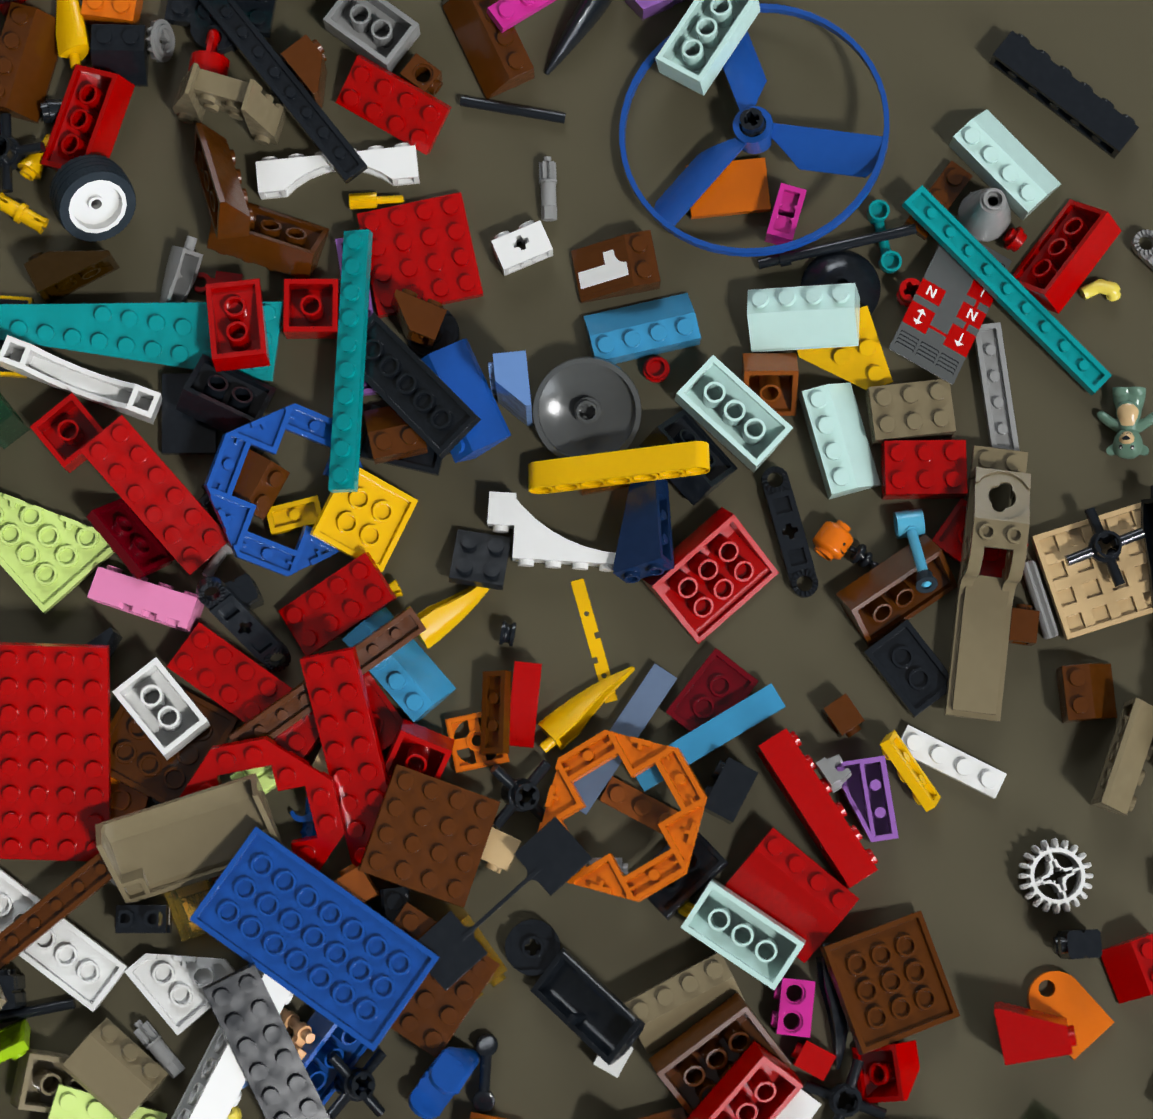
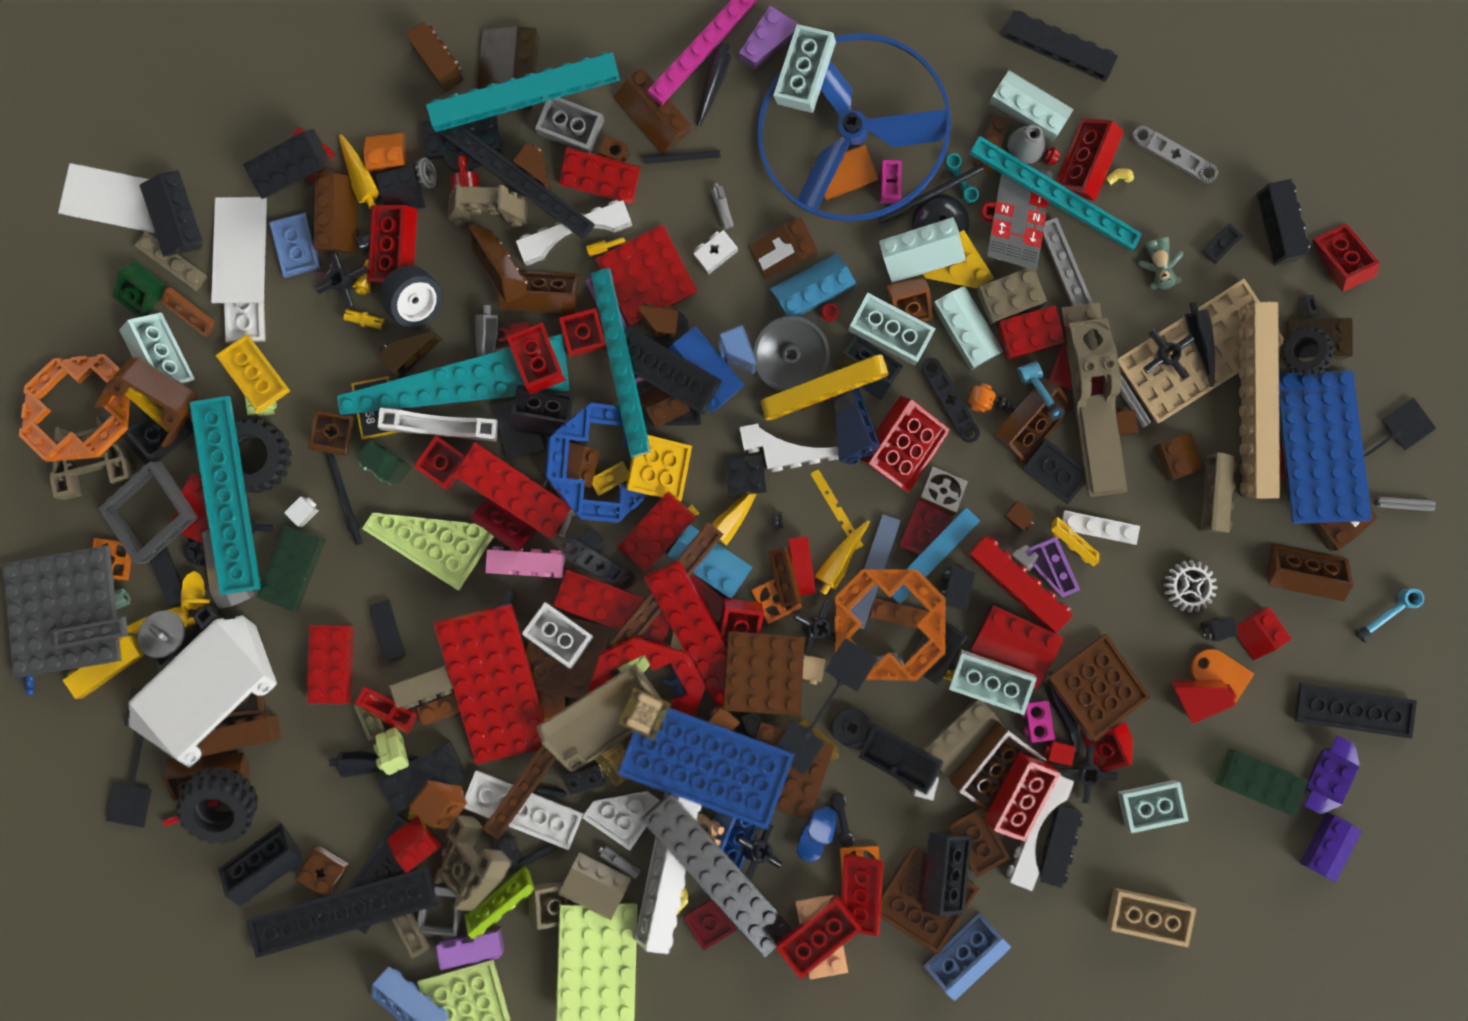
camera: 10 degrees left, 5 degrees up
(95, 926) = (554, 792): none -> black piece
(248, 844) = (644, 713): none -> tile
(751, 679) = (947, 479): none -> piece

